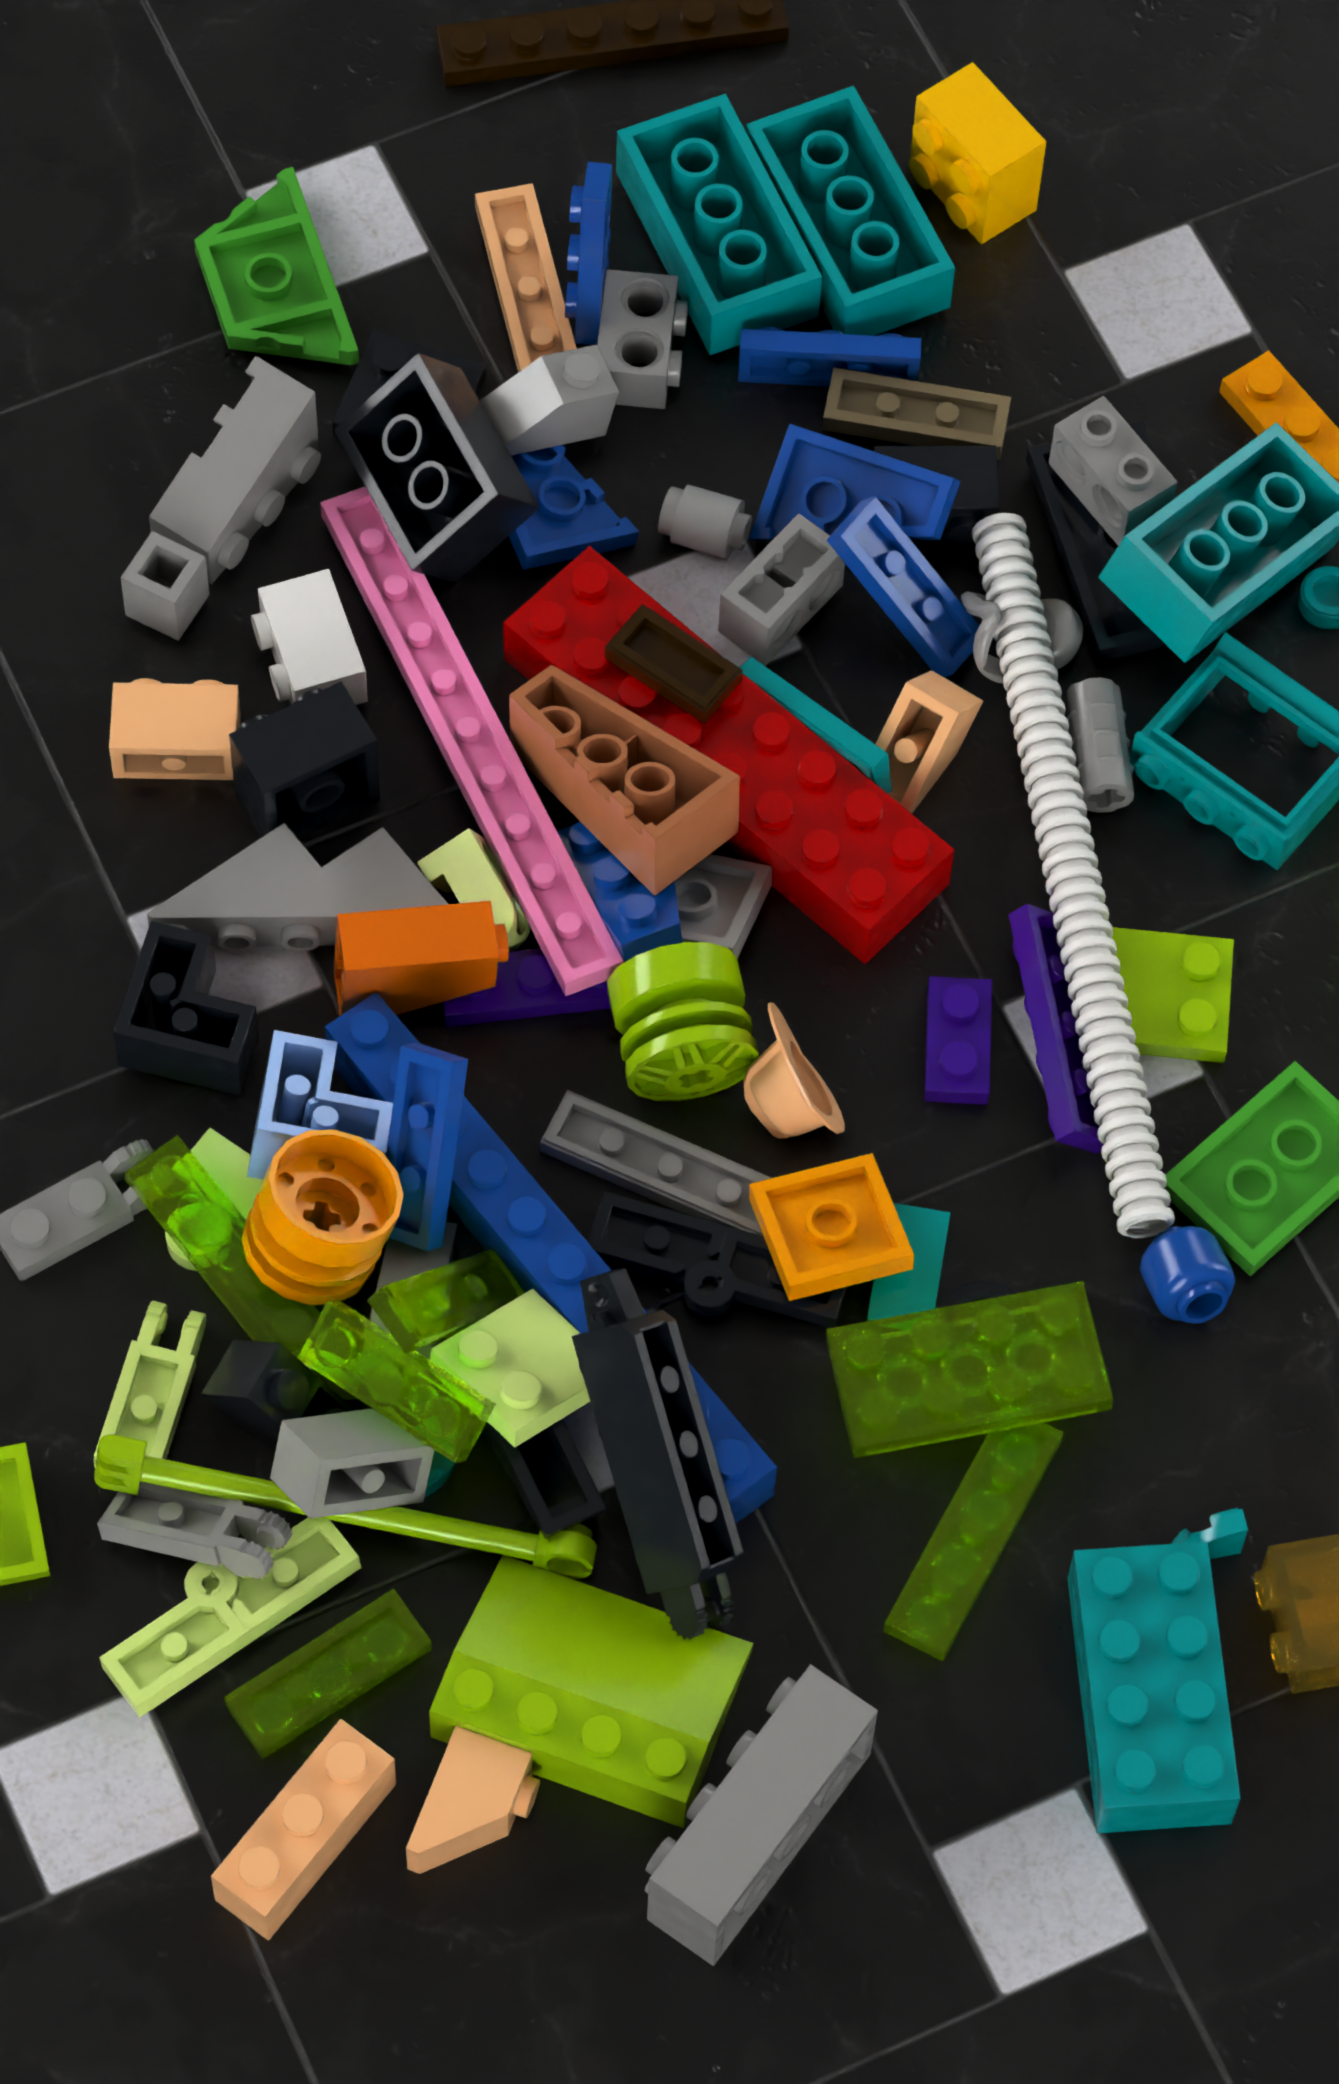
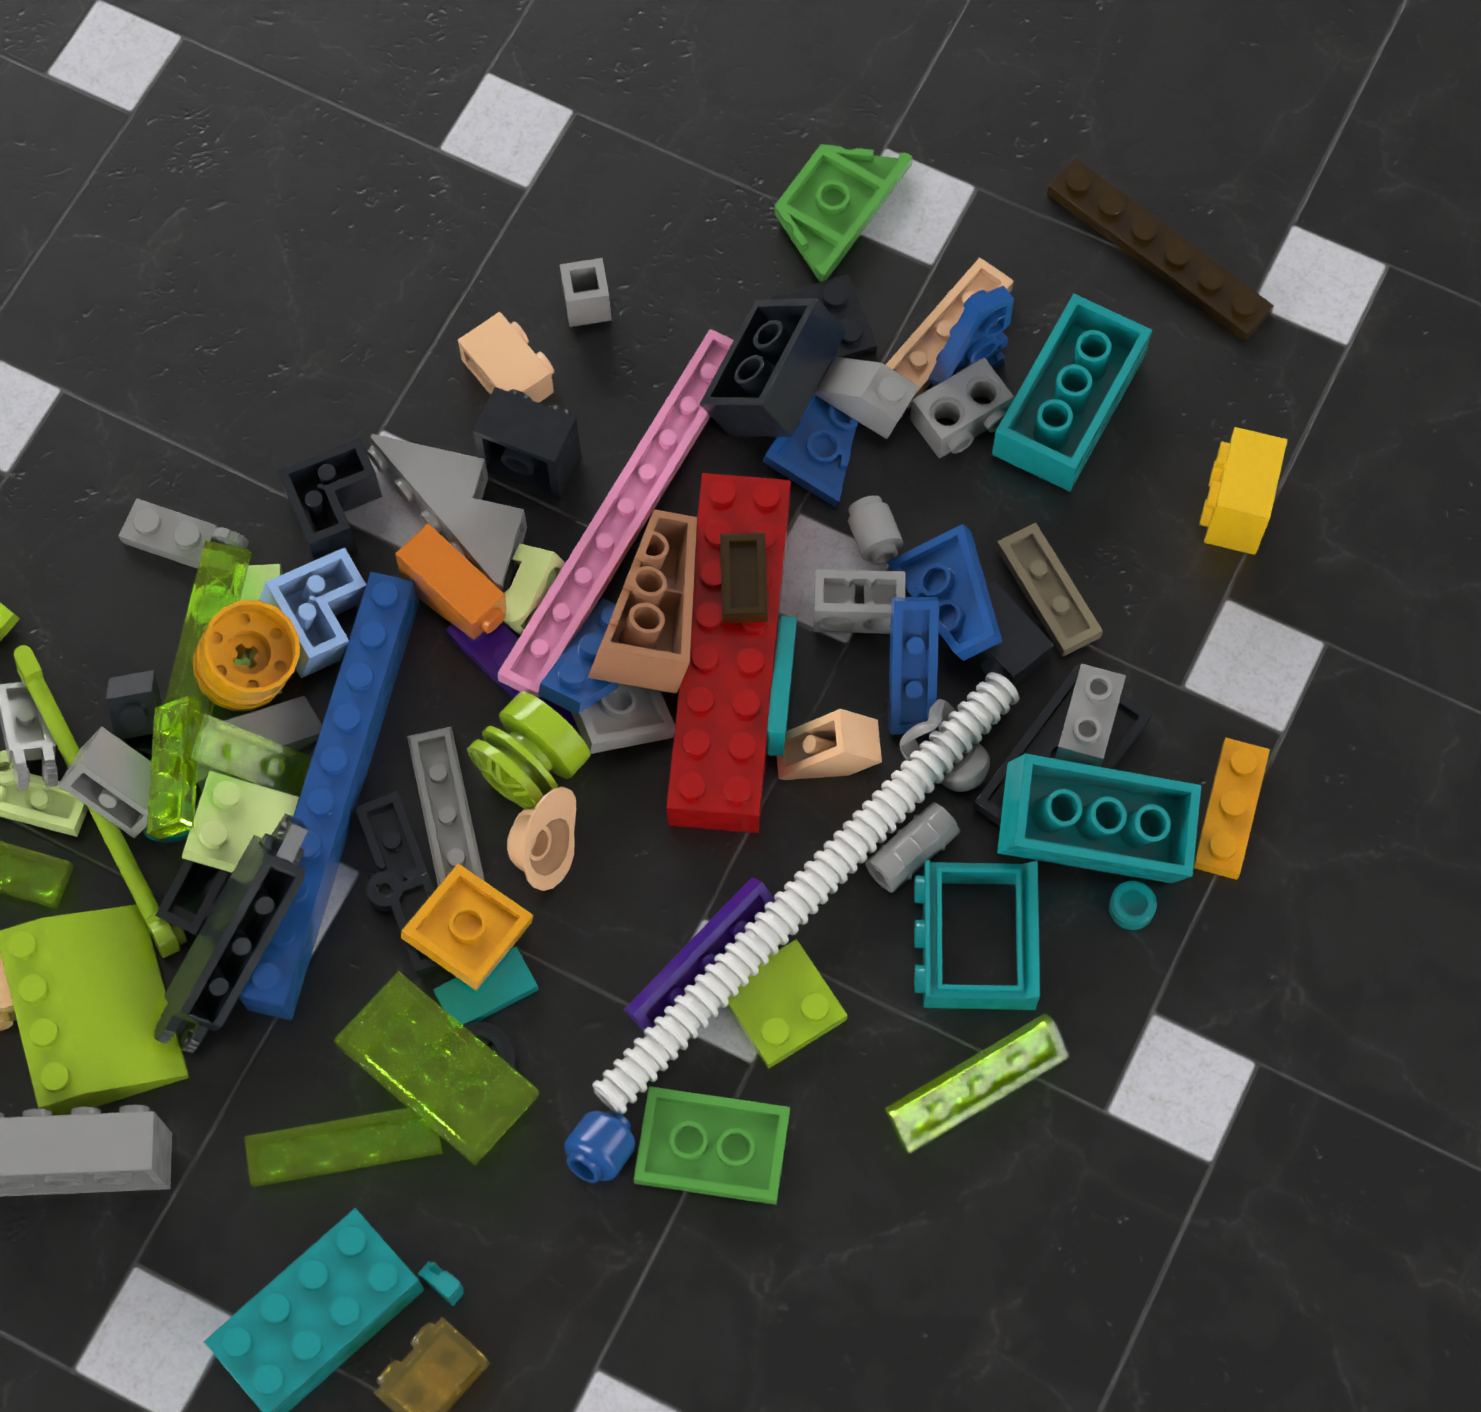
camera: 55 degrees right, 5 degrees up
(154, 1382) = (98, 654): yellowish green hinge -> none
(245, 472) = (687, 277): light grey wedge -> none
(308, 638) = (613, 390): white brick -> none
(425, 1140) = (327, 673): blue plate -> none
(809, 357) = (1020, 491): blue plate -> none
(854, 214) = (1141, 455): teal brick -> none
(958, 1040) = (656, 910): dark purple plate -> none

